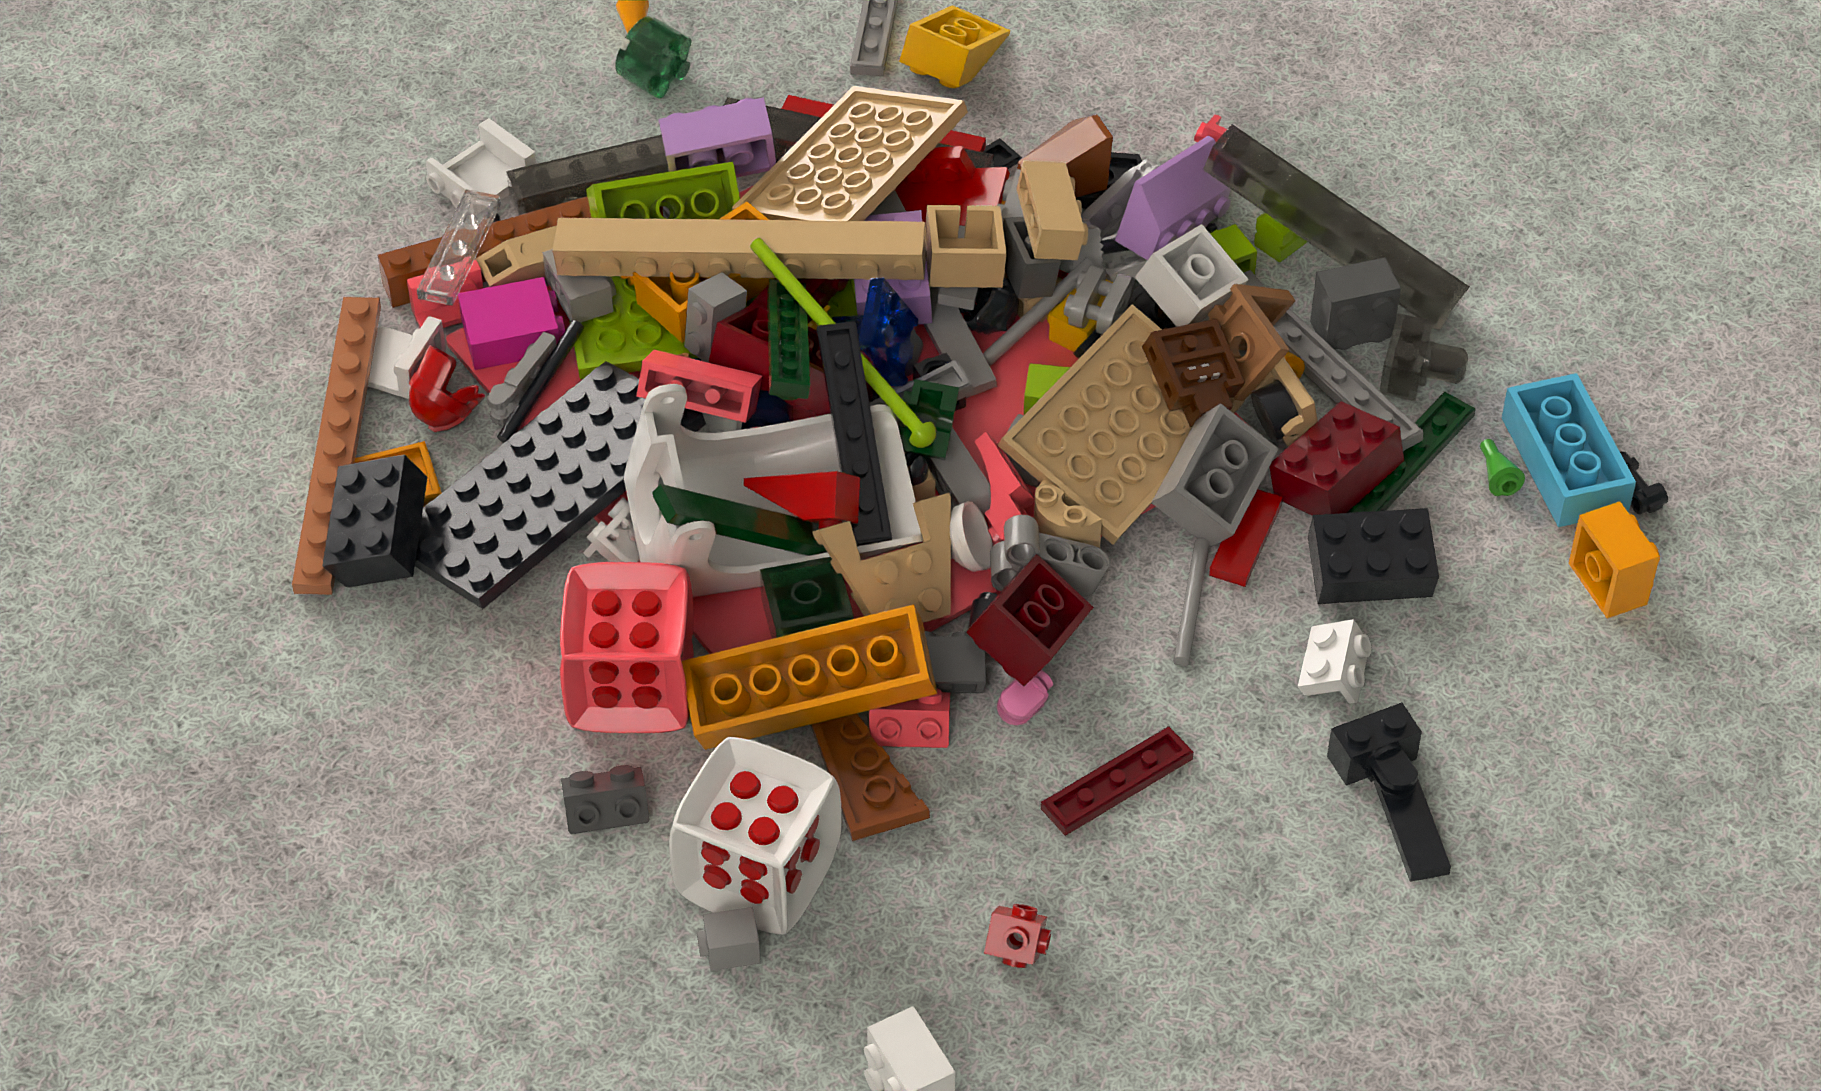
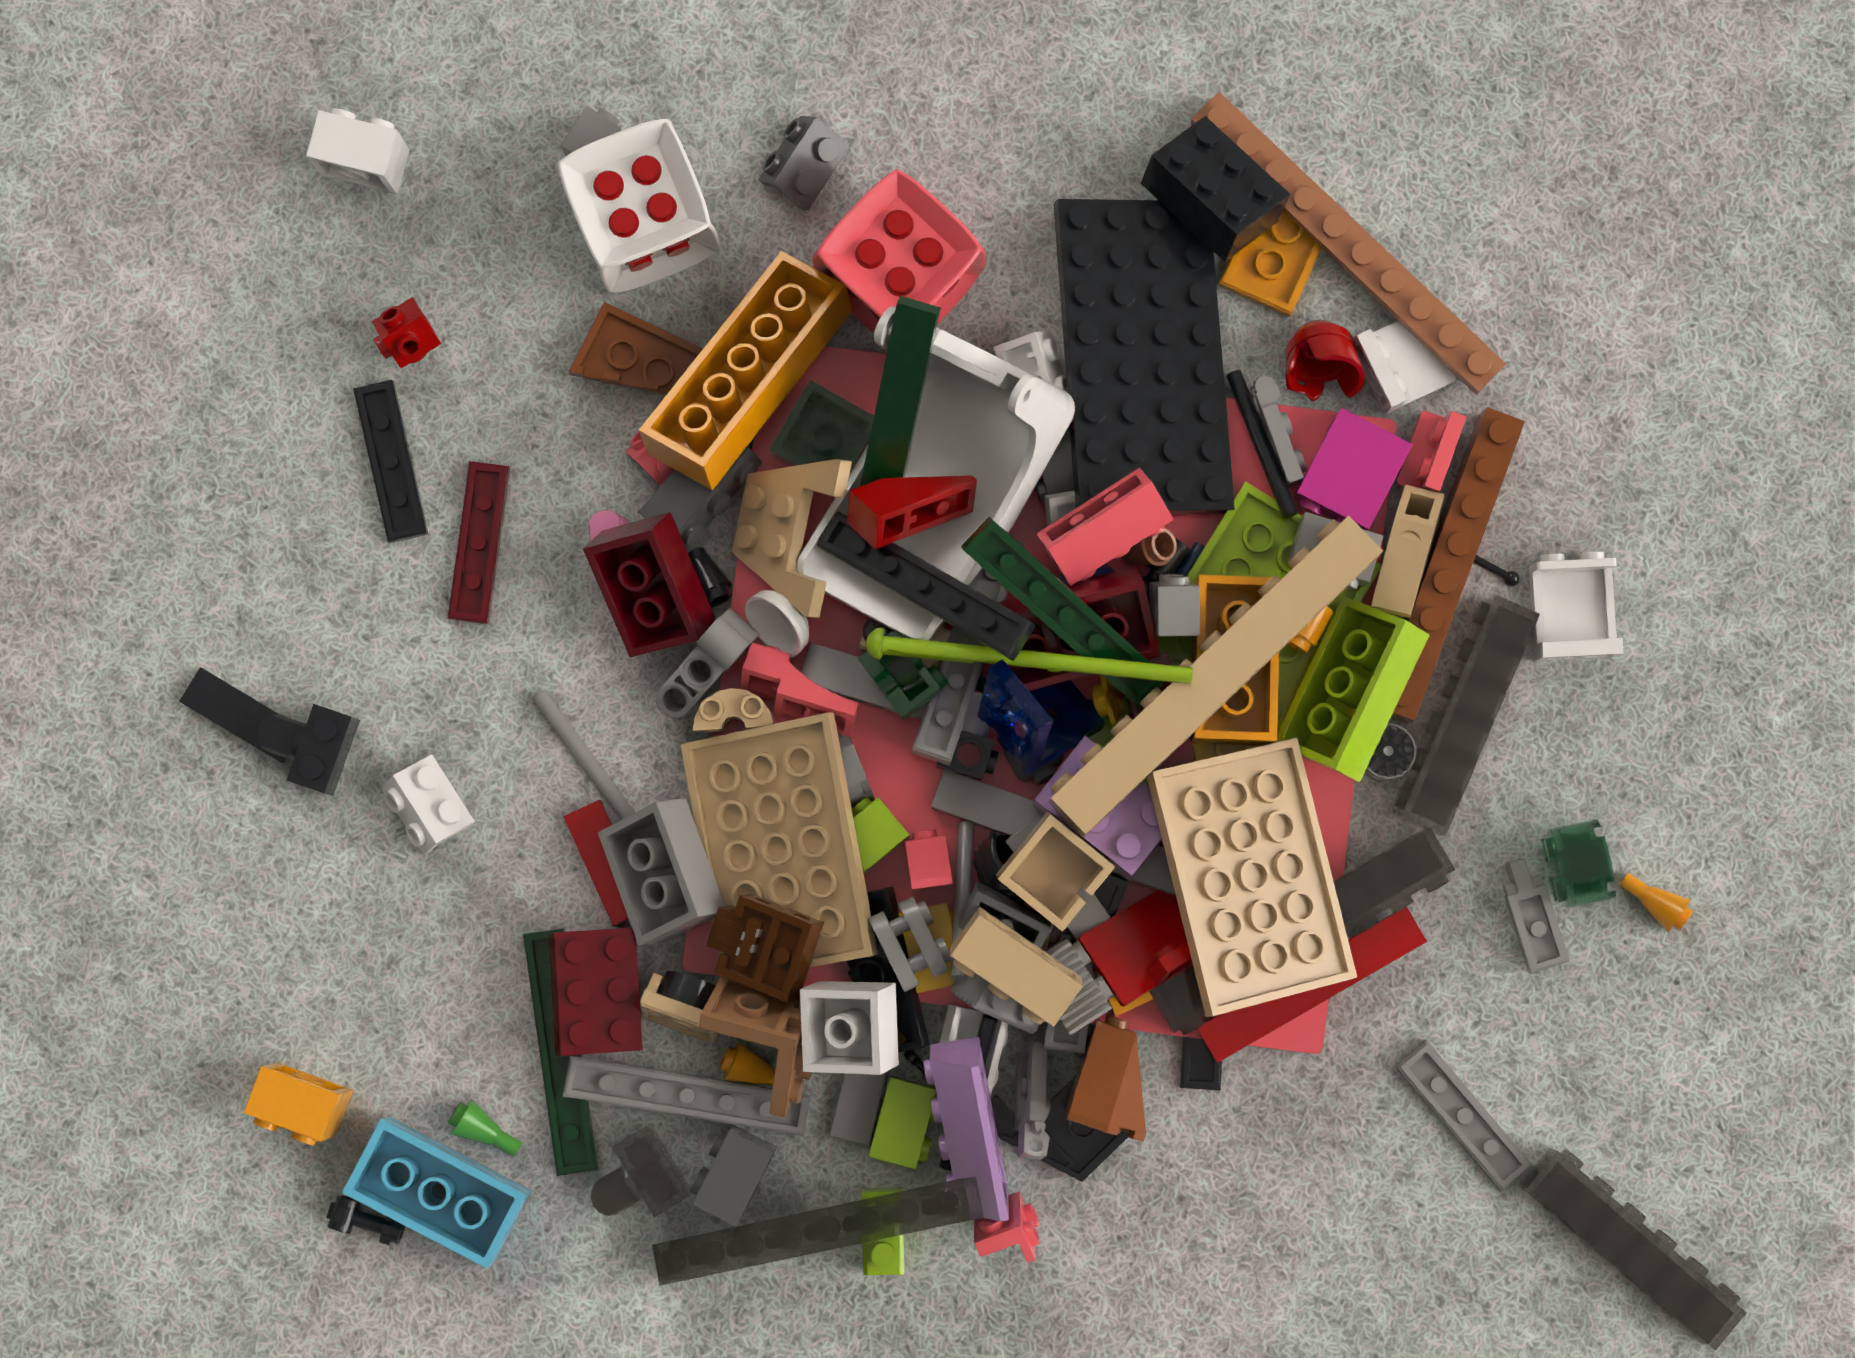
camera: 130 degrees right, 35 degrees up
(458, 247) = (1462, 483): clear tile -> none
(712, 67) = (1533, 919): none -> light grey hinge
(720, 135) = (1383, 790): lavender brick -> none
(951, 45) = (1369, 1156): yellow slope -> none
(1036, 338) = (928, 860): none -> coral slope
(1121, 883) = (390, 461): none -> black tile
(1372, 556) = (481, 924): black brick -> none

